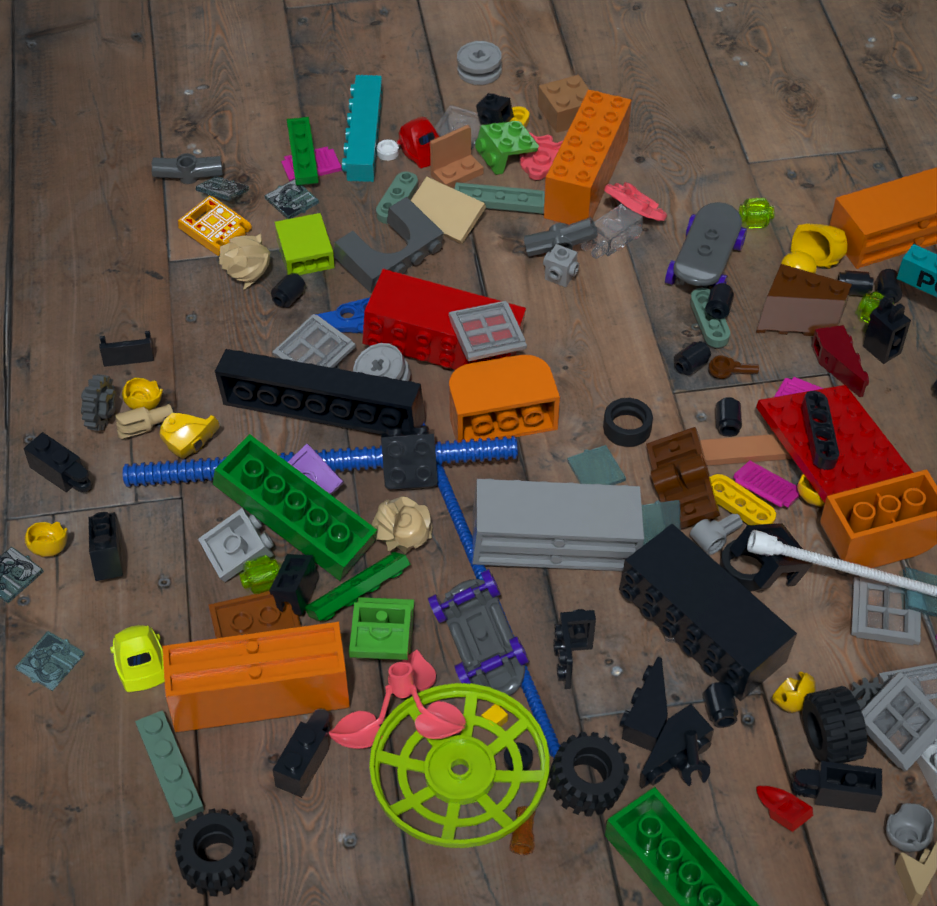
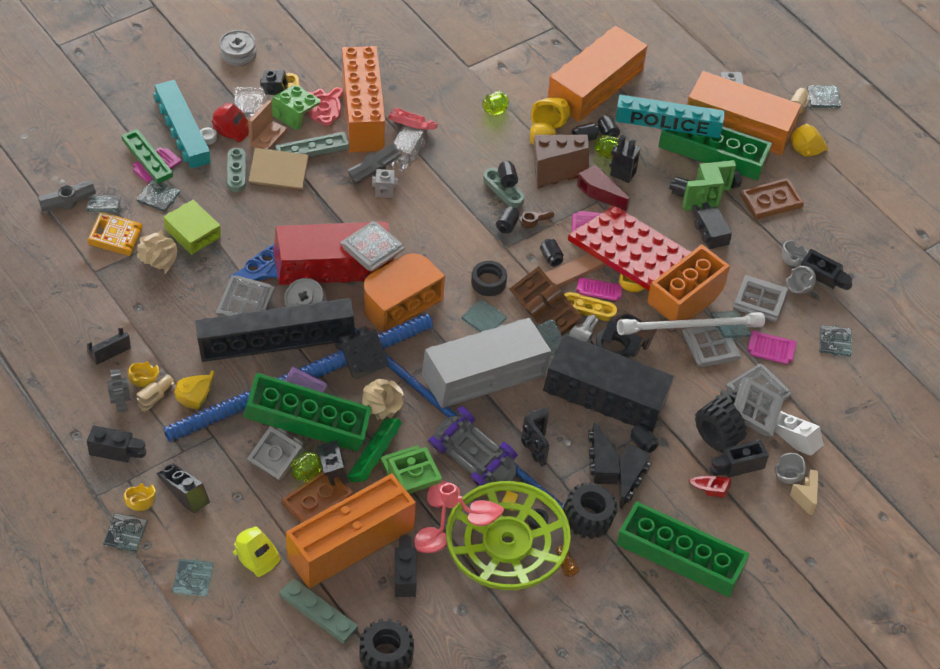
camera: 30 degrees left, 0 degrees up
(288, 290) = (200, 264): black brick -> none
(408, 221) = (255, 227): dark grey arch -> none
(561, 101) = (320, 60): medium nougat brick -> none
(693, 762) = (647, 478): black bar -> none
(708, 246) = (478, 137): dark grey piece -> none
(792, 692) = (685, 415): yellow hair -> none
(829, 459) = (631, 254): black beam -> none

